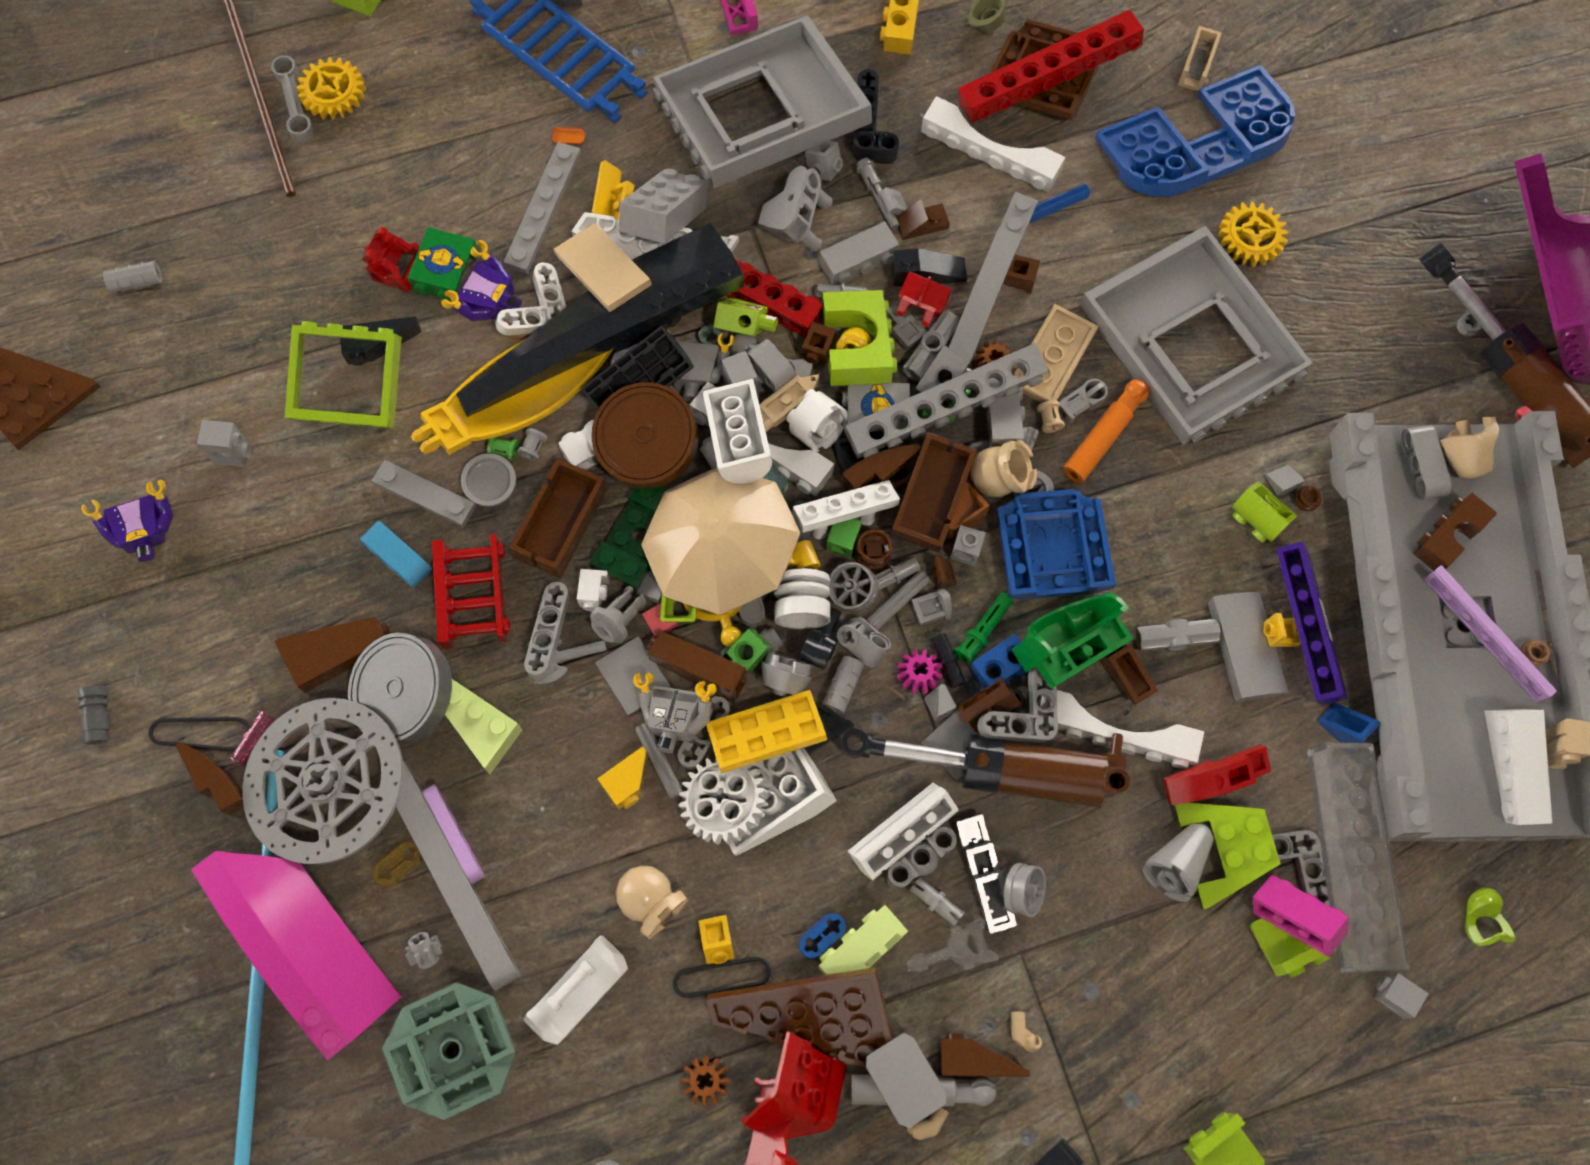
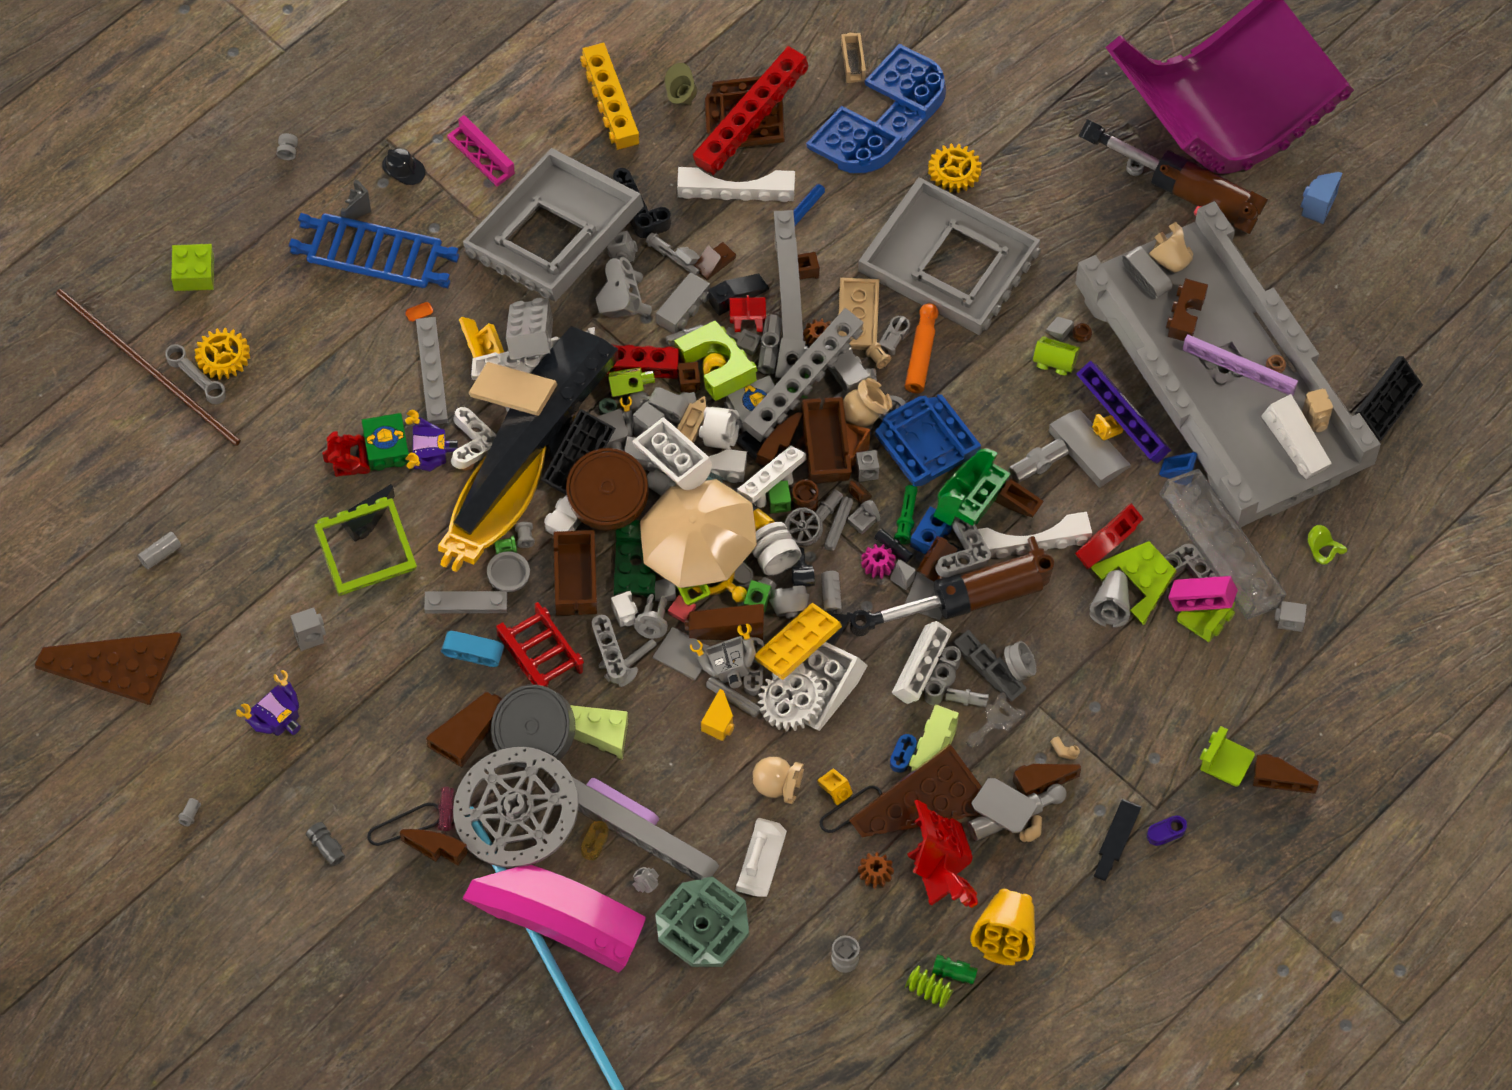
camera: 25 degrees left, 10 degrees down
(865, 643) = (832, 558): light grey piece -> none

